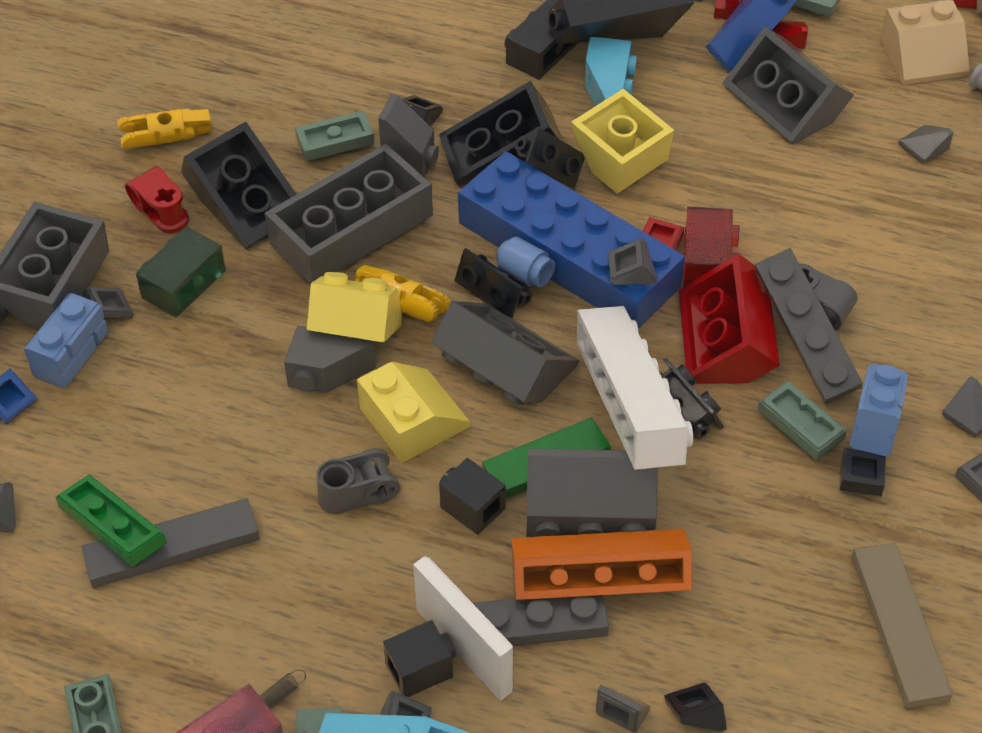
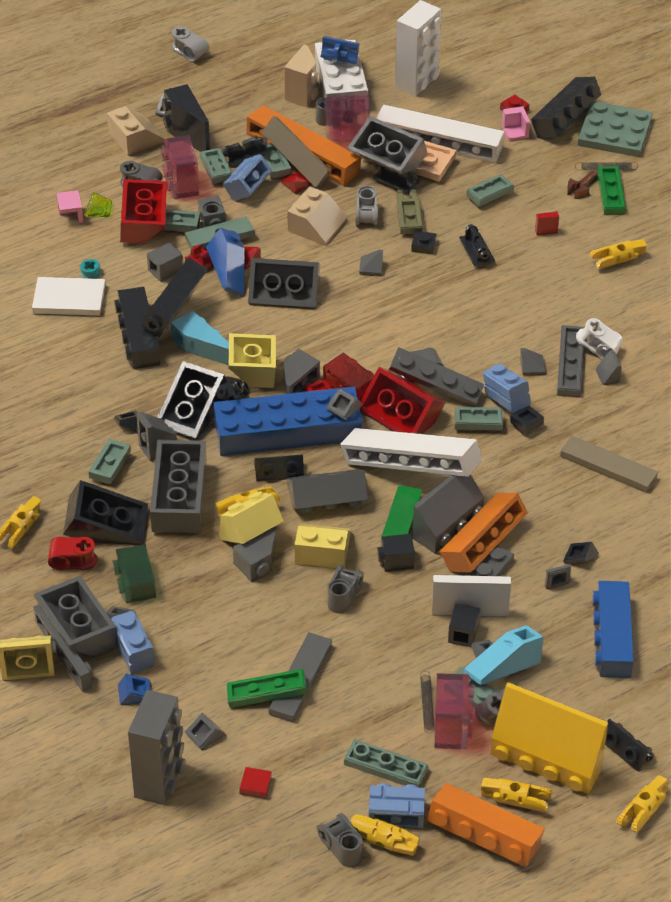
camera: 50 degrees left, 5 degrees down
(525, 262) = (286, 444): medium blue brick -> none
(657, 194) = (299, 371): none -> dark grey slope

